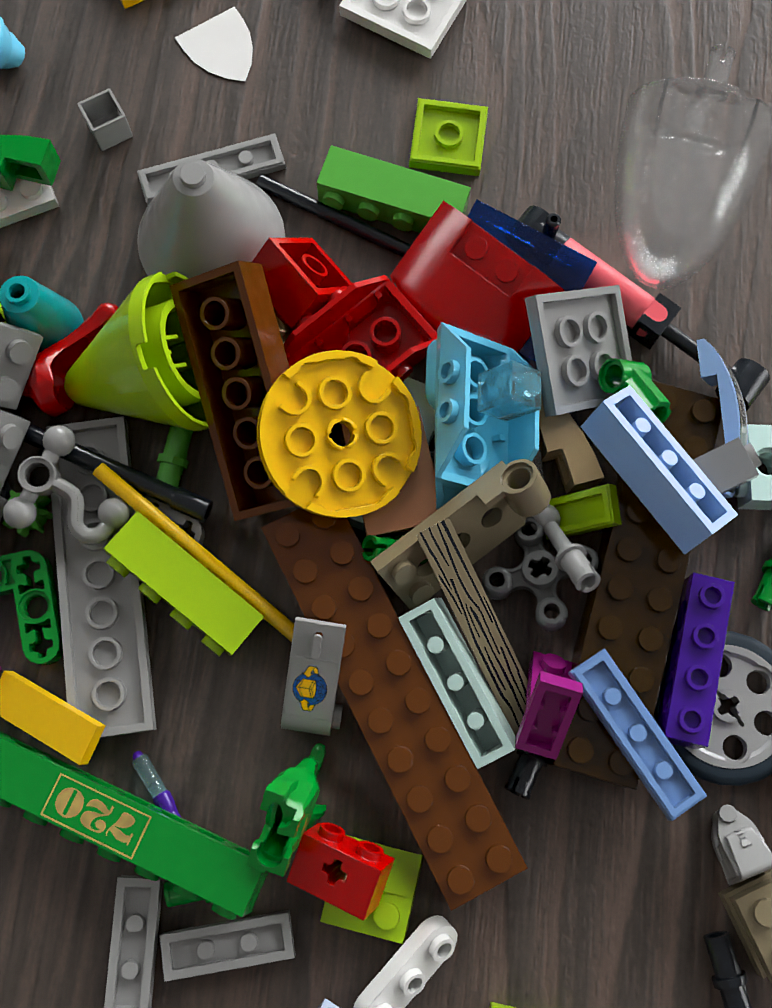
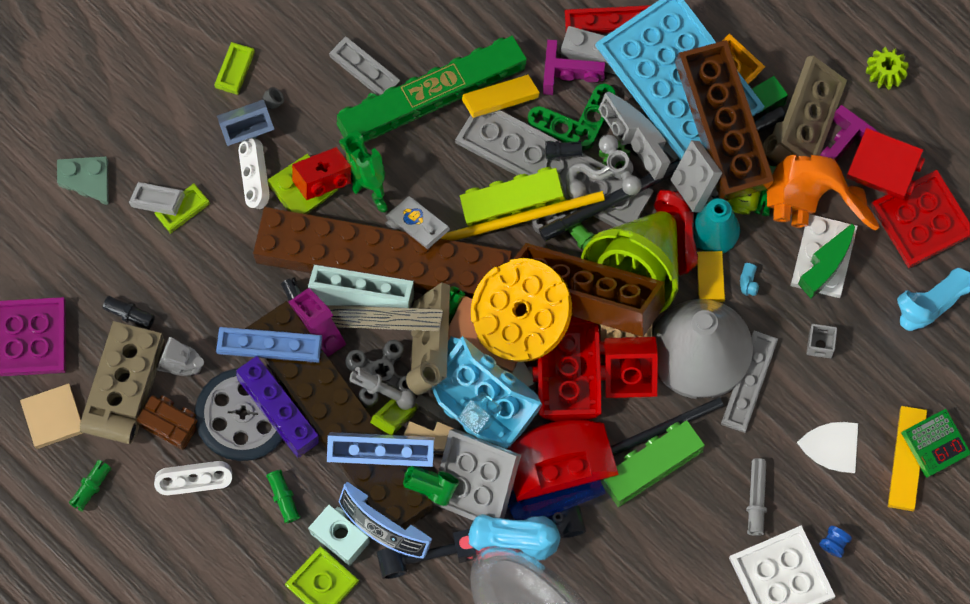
camera: 135 degrees right, 5 degrees down
(73, 578) = (555, 150): none -> black pin
(90, 248) = (746, 280): none -> medium azure arm
(110, 287) = (710, 276): none -> yellow tile
(153, 783) = (425, 124): clear light blue piece -> none
(227, 945) = (332, 102): light grey plate -> none
(341, 71) = (757, 498): none -> light grey axle
(448, 137) = (669, 528): lime tile -> none
(601, 231) = (533, 536): none -> medium azure hair
(729, 465) = (354, 485): light grey brick -> none

